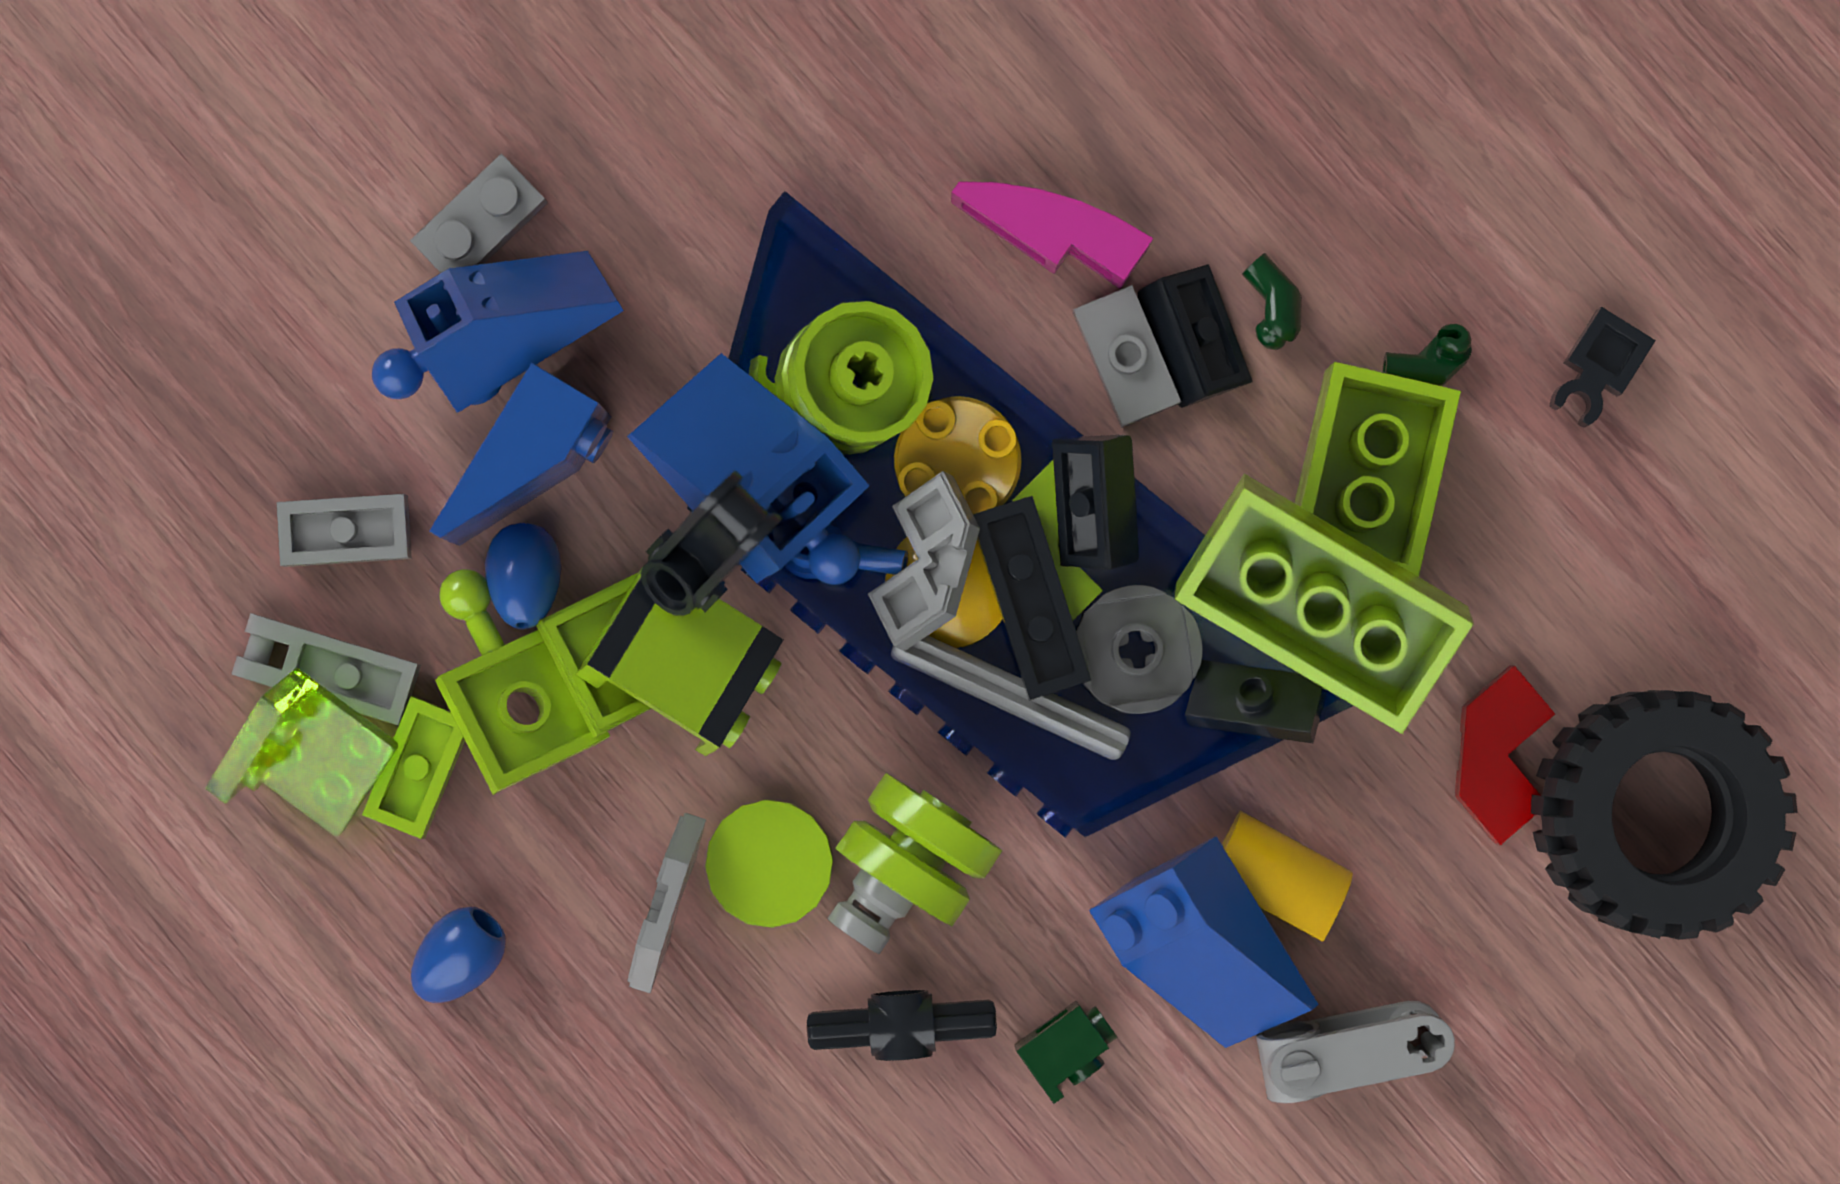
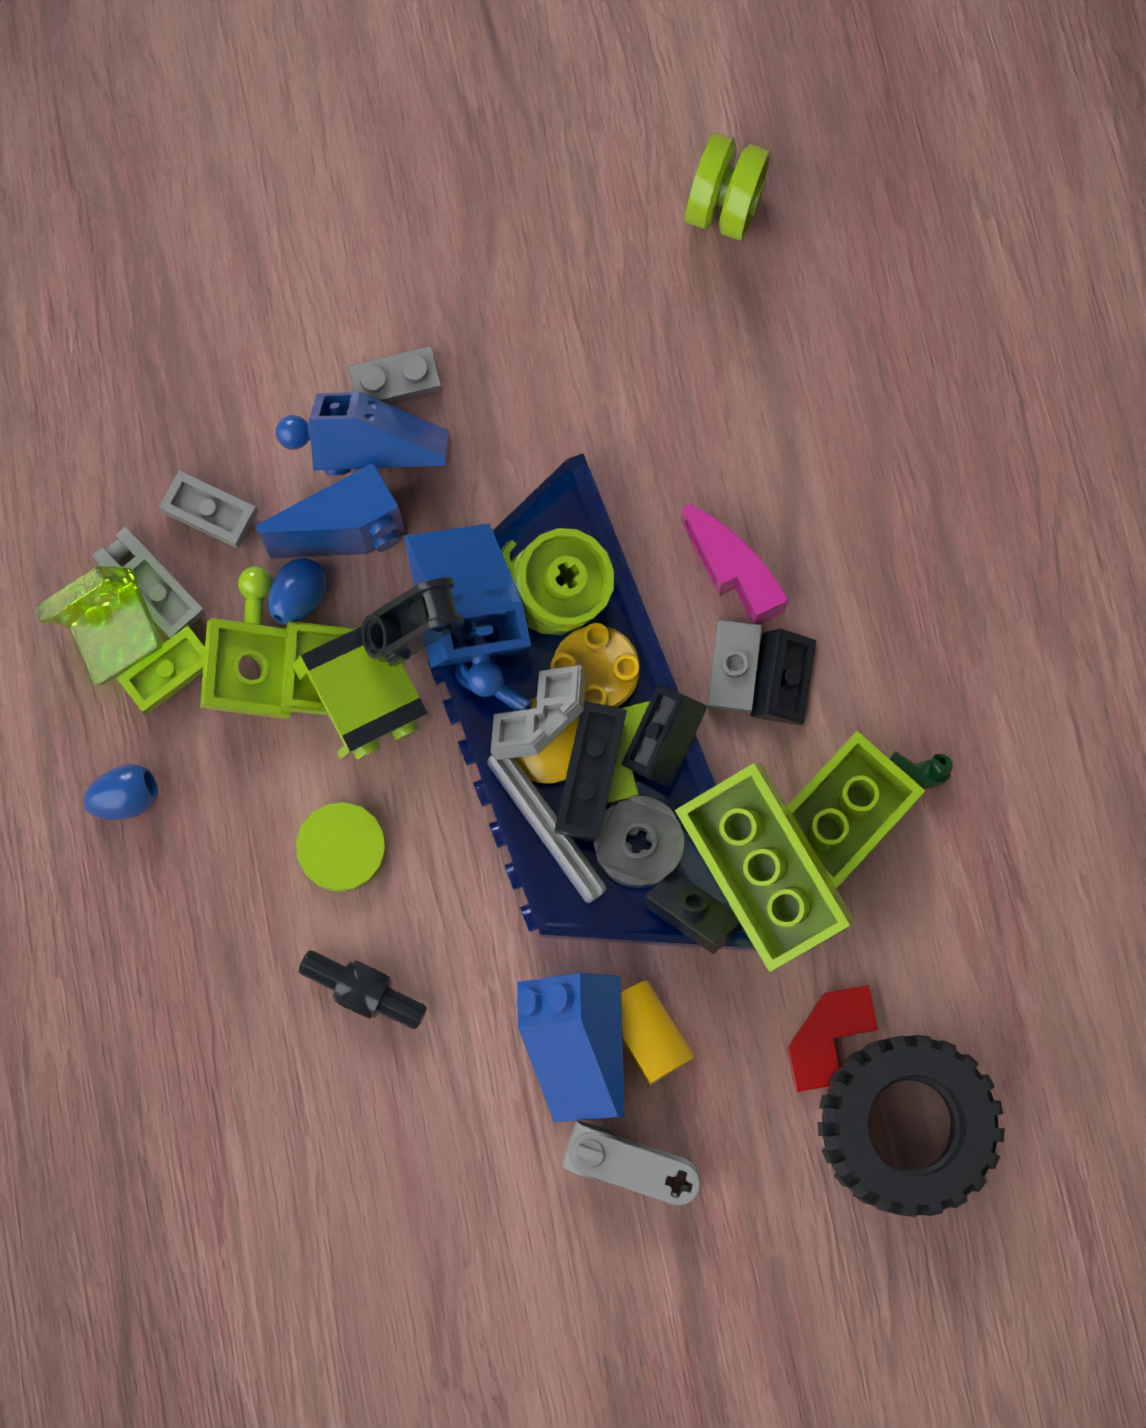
camera: 30 degrees right, 10 degrees down
(659, 923) = (247, 845): light grey tile -> none
(879, 900) = (394, 903): light grey wheel -> none
(915, 854) = (436, 882): lime wheel -> none
(1066, 1048) = (454, 1061): dark green brick -> none
(1281, 305) = (846, 687): dark green arm -> none
(1605, 359) = (1028, 828): black plate -> none

